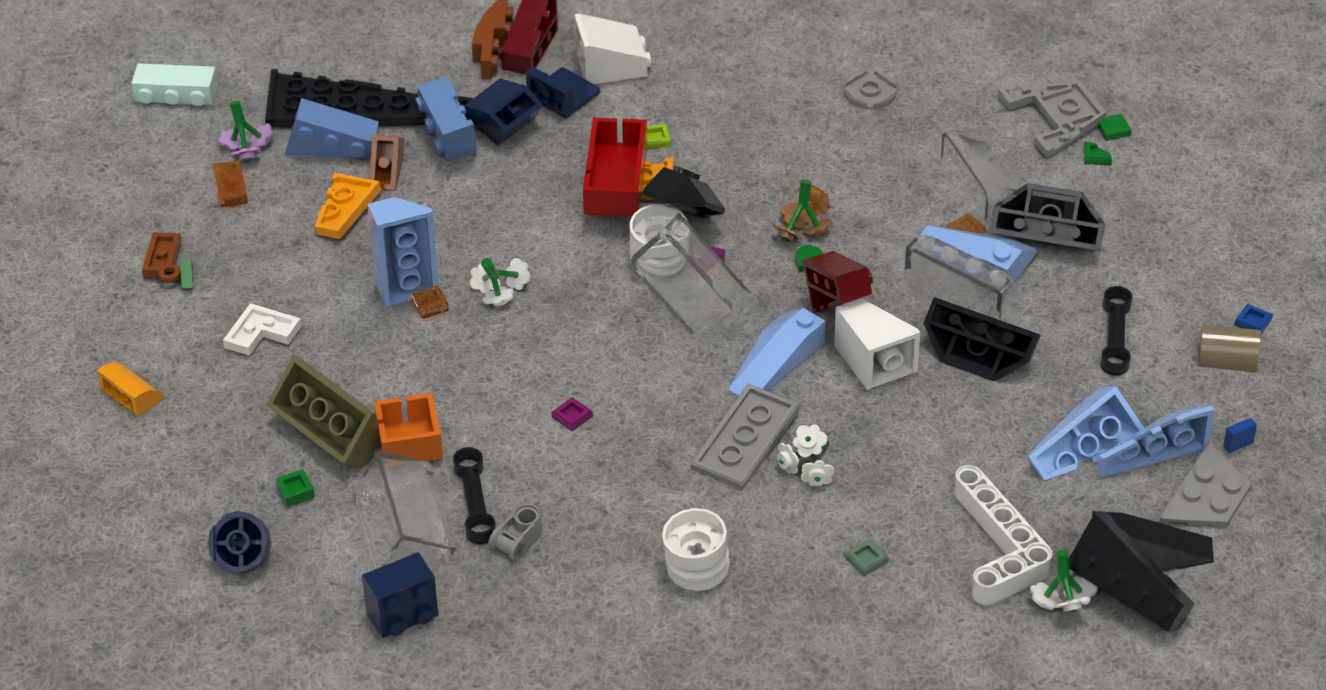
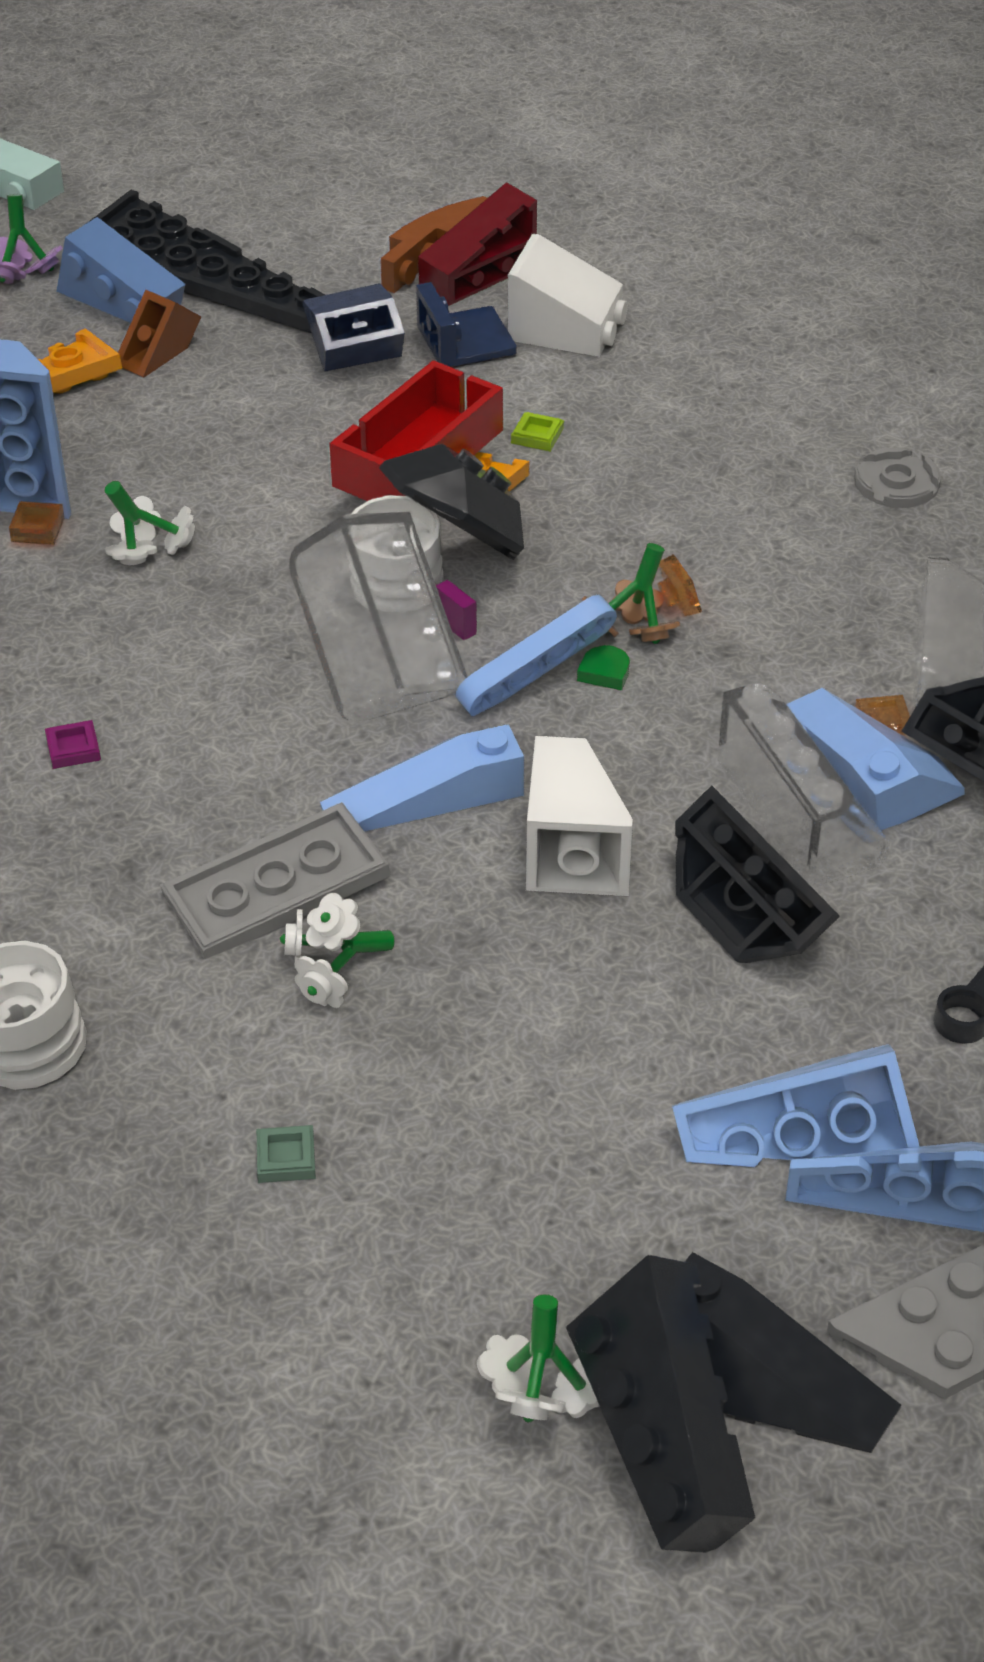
camera: 30 degrees right, 0 degrees up
(446, 119) = (266, 310): medium blue wedge -> none
(778, 266) = (536, 655): none -> light blue beam
(835, 280) = (578, 698): dark red wedge -> none
(1027, 554) = (541, 1223): white beam -> none

